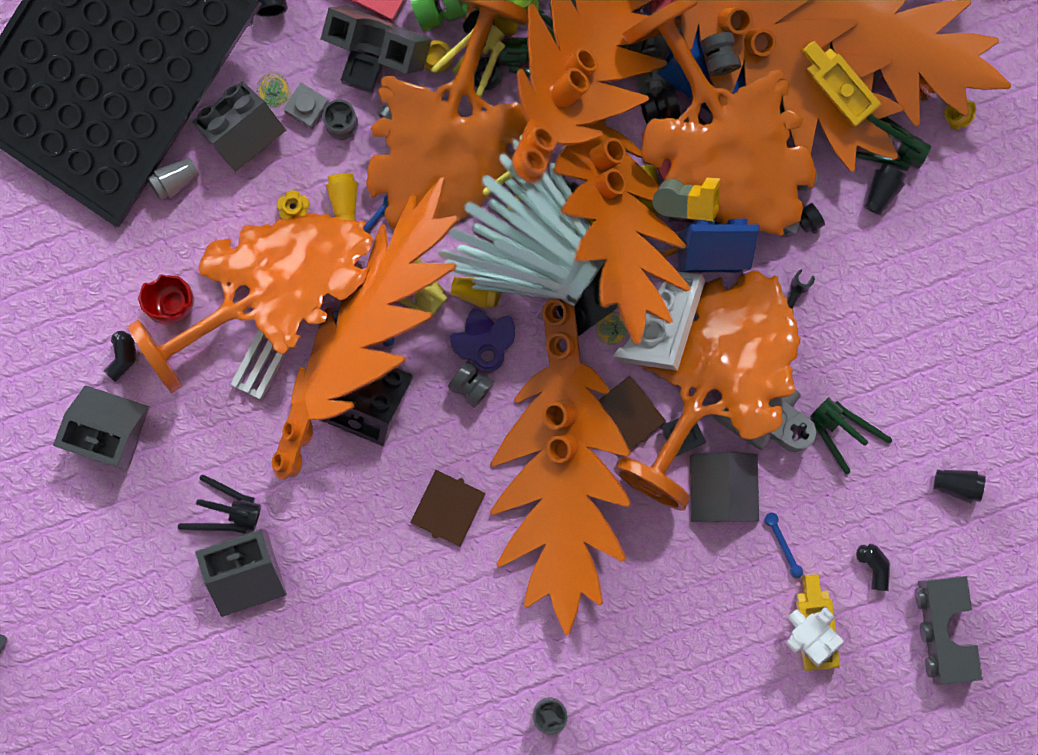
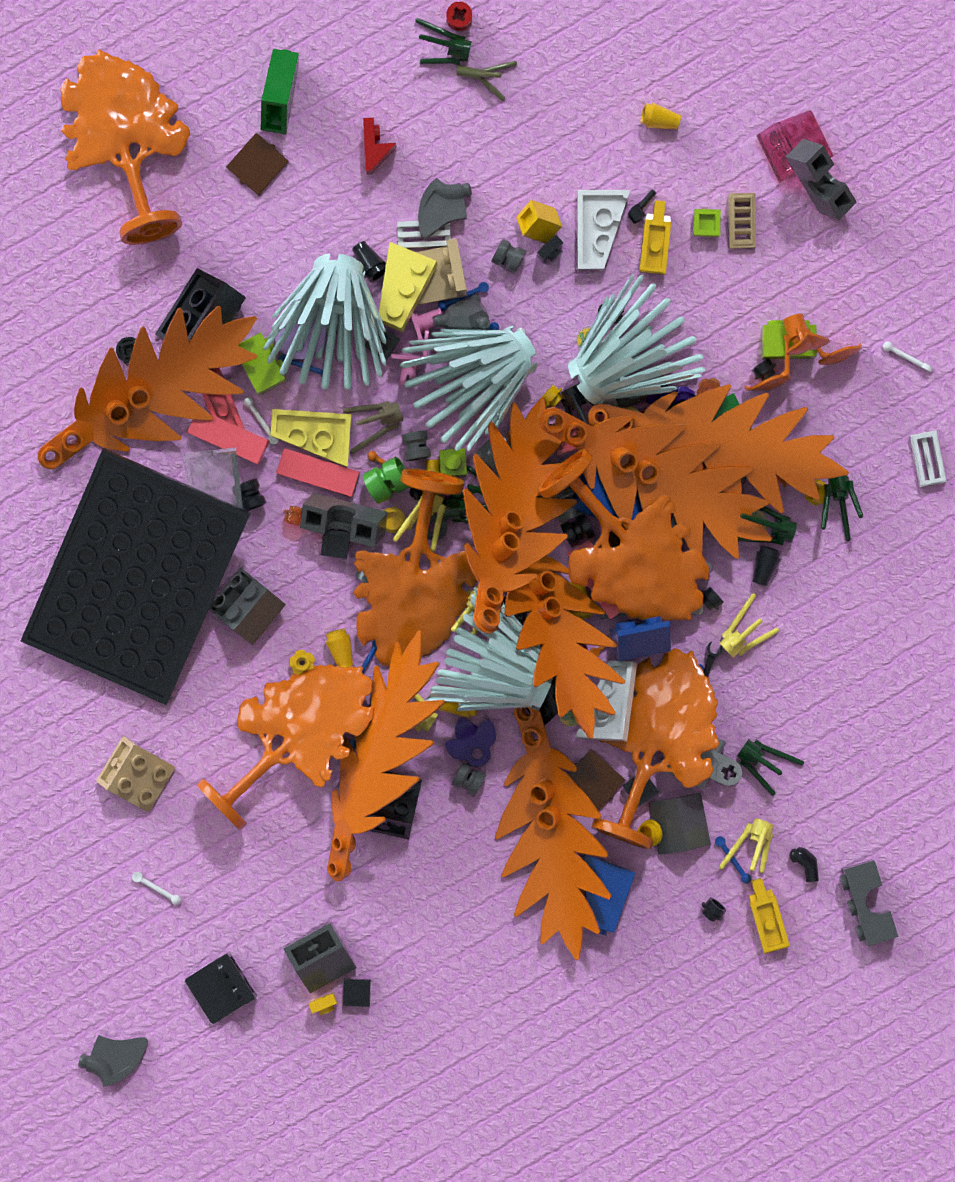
camera: 10 degrees left, 5 degrees up
(39, 433) = (138, 877): none -> white hinge
(61, 306) = (135, 774): none -> tan bracket
(102, 427) = (189, 864): dark grey slope -> none
(110, 588) = (220, 988): none -> black bracket
(124, 355) = (193, 804): black arm -> none
(166, 299) = (219, 755): red hair -> none
(172, 178) = (203, 657): light grey cone -> none
(235, 634) = (323, 1004): none -> yellow plate
(242, 513) = (311, 911): black plant -> none
(247, 361) = (294, 812): white tile -> none
(273, 89) = (267, 570): clear tile -> none
(281, 626) = (356, 992): none -> black plate
(306, 105) = (296, 578): light grey plate -> none
(314, 29) = (293, 515): none -> clear orange plate
(336, 114) = (322, 587): dark grey wheel -> none
(448, 508) = (468, 878): reddish brown piece -> none
(551, 720) = (575, 1027): dark grey wheel -> none
(617, 576) = (618, 883): none -> blue slope
(688, 201) = (612, 609): leg -> none
(692, 487) = (651, 829): none -> yellow plate
(720, 54) = (617, 490): dark grey wheel -> none
(749, 603) = (713, 909): none -> black plate
(814, 636) = (764, 927): white piece -> none
(825, 518) = (761, 834): none -> light yellow plant
(830, 276) = (734, 642): none -> light yellow plant
(840, 84) = (715, 494): yellow hinge -> none
(961, 484) = (861, 788): black cone -> none
(989, 111) = (840, 488): none -> dark green plant

